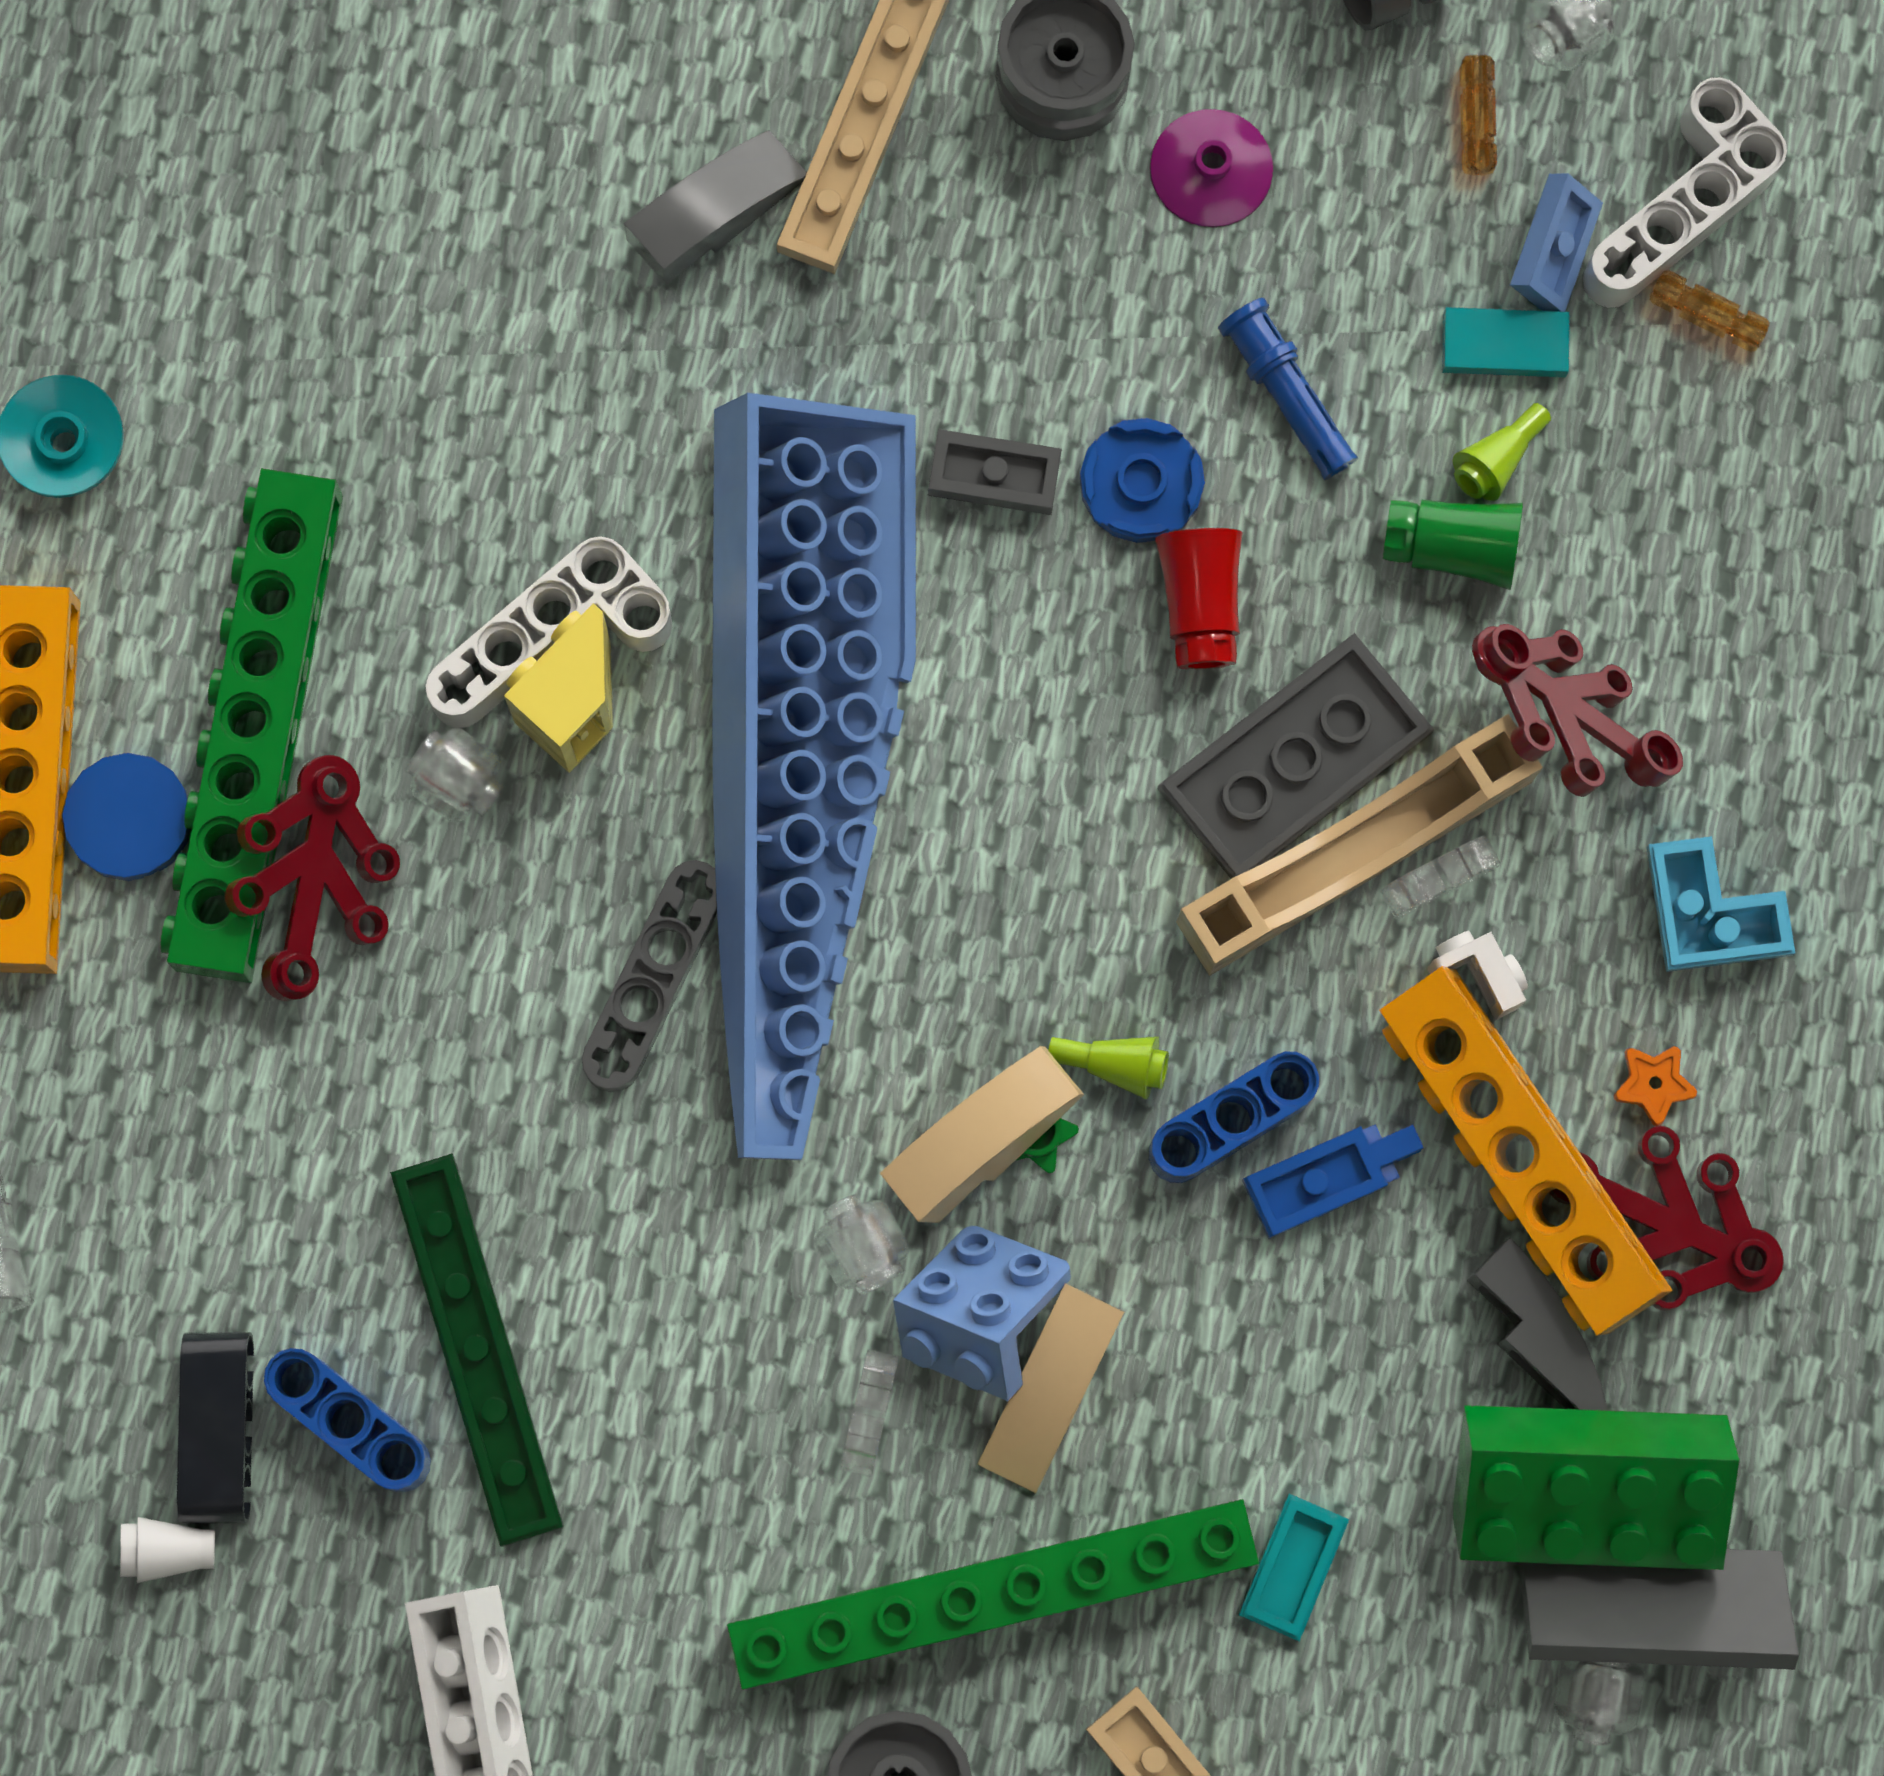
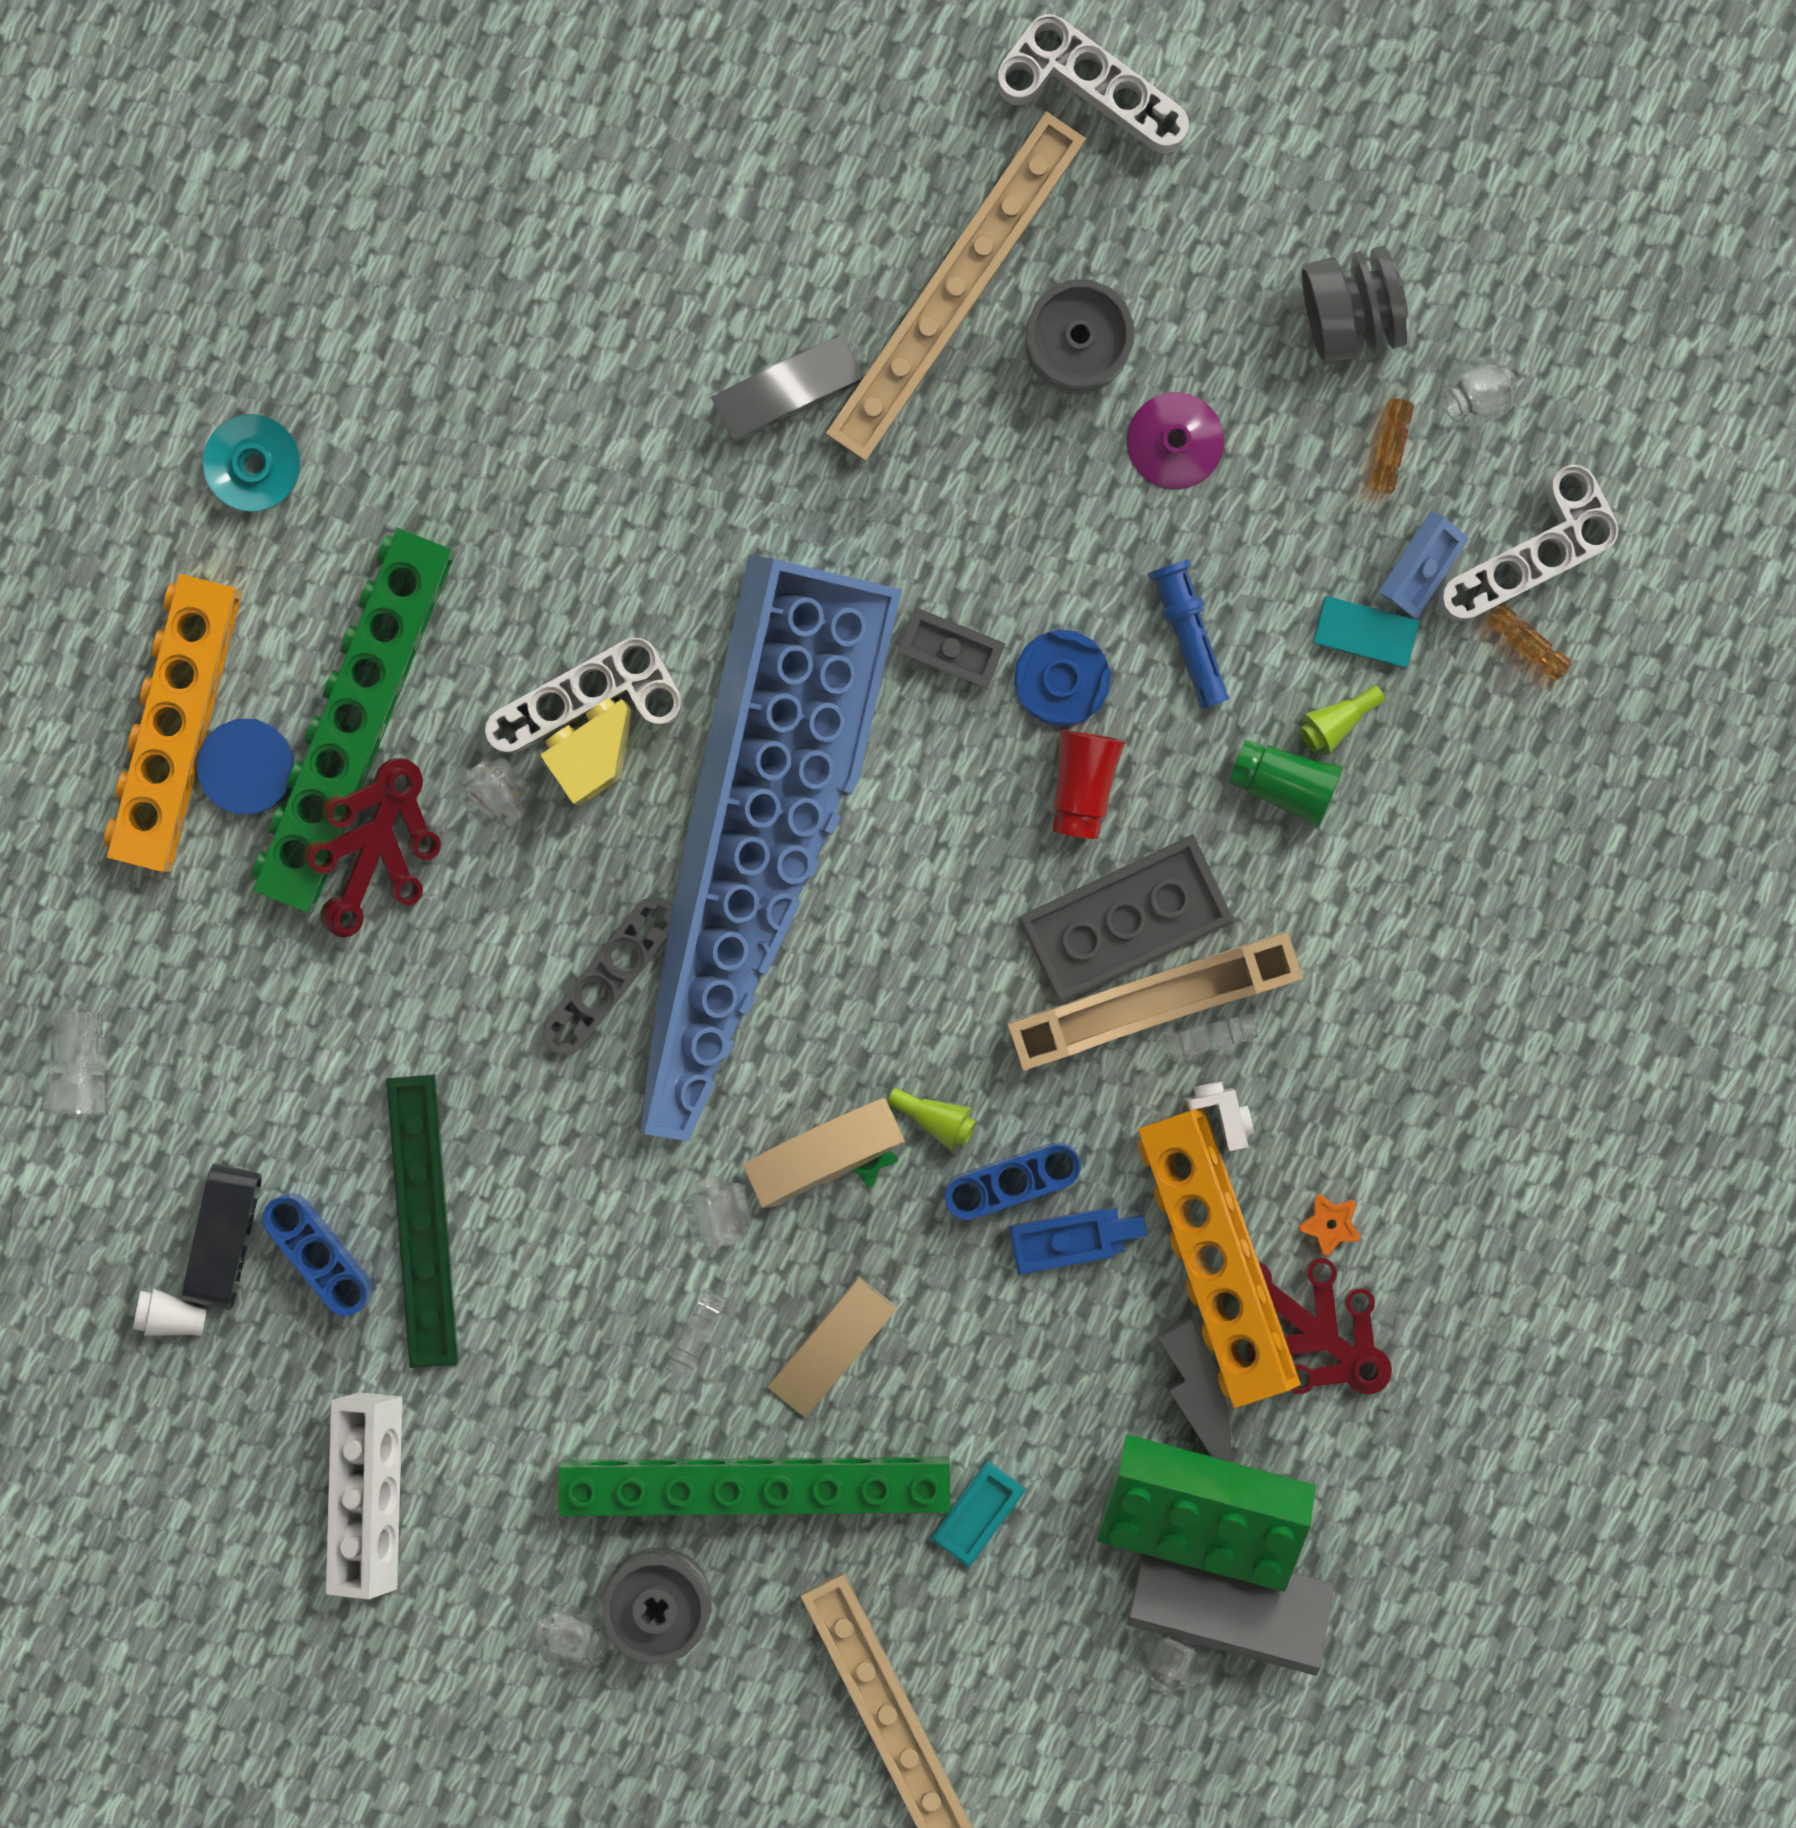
camera: 20 degrees right, 10 degrees up
(973, 1304) = (791, 1277): medium blue bracket -> none
(1510, 659) = (1387, 983): dark red plant -> none
(1700, 925) = (1394, 1117): medium azure brick -> none

